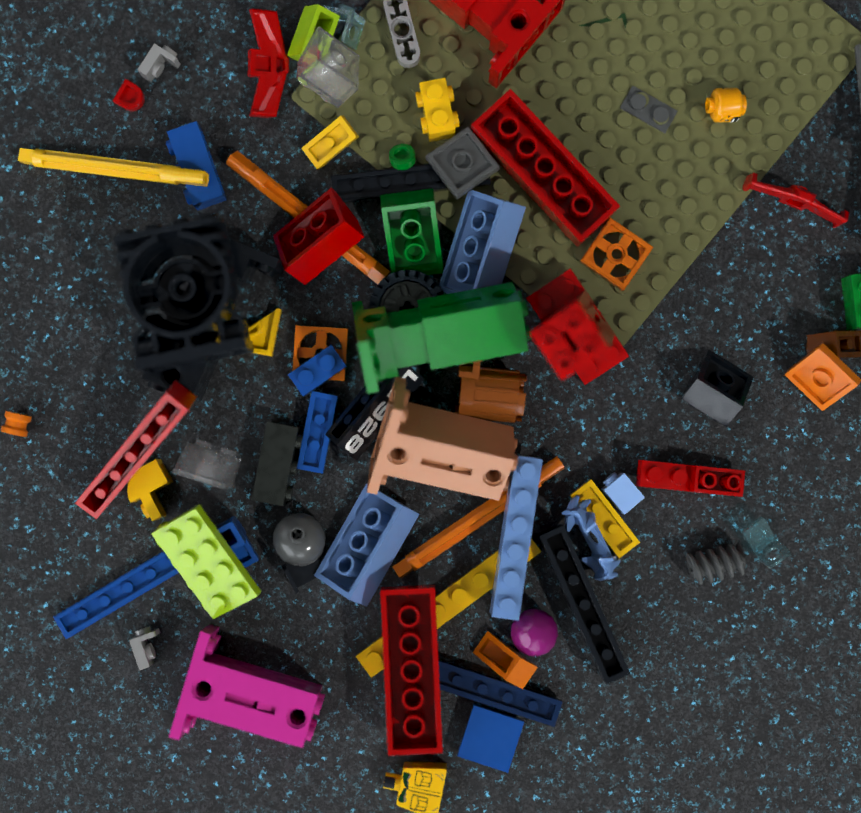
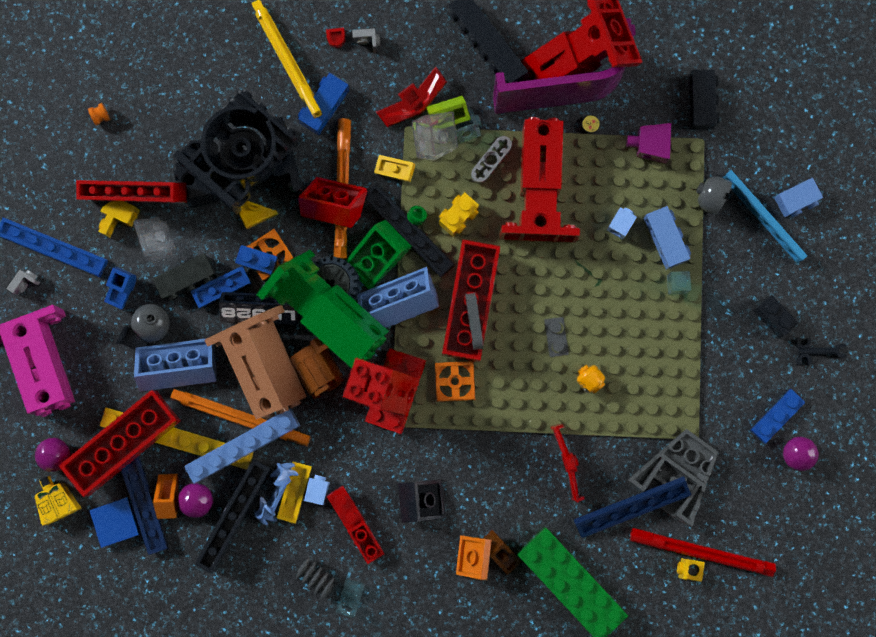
camera: 50 degrees right, 5 degrees down
(206, 562) = (96, 279): lime bracket -> none
(365, 752) = (51, 454): none -> magenta piece
(462, 162) = (438, 251): dark grey plate -> none
(574, 178) = (474, 321): none -> dark grey beam

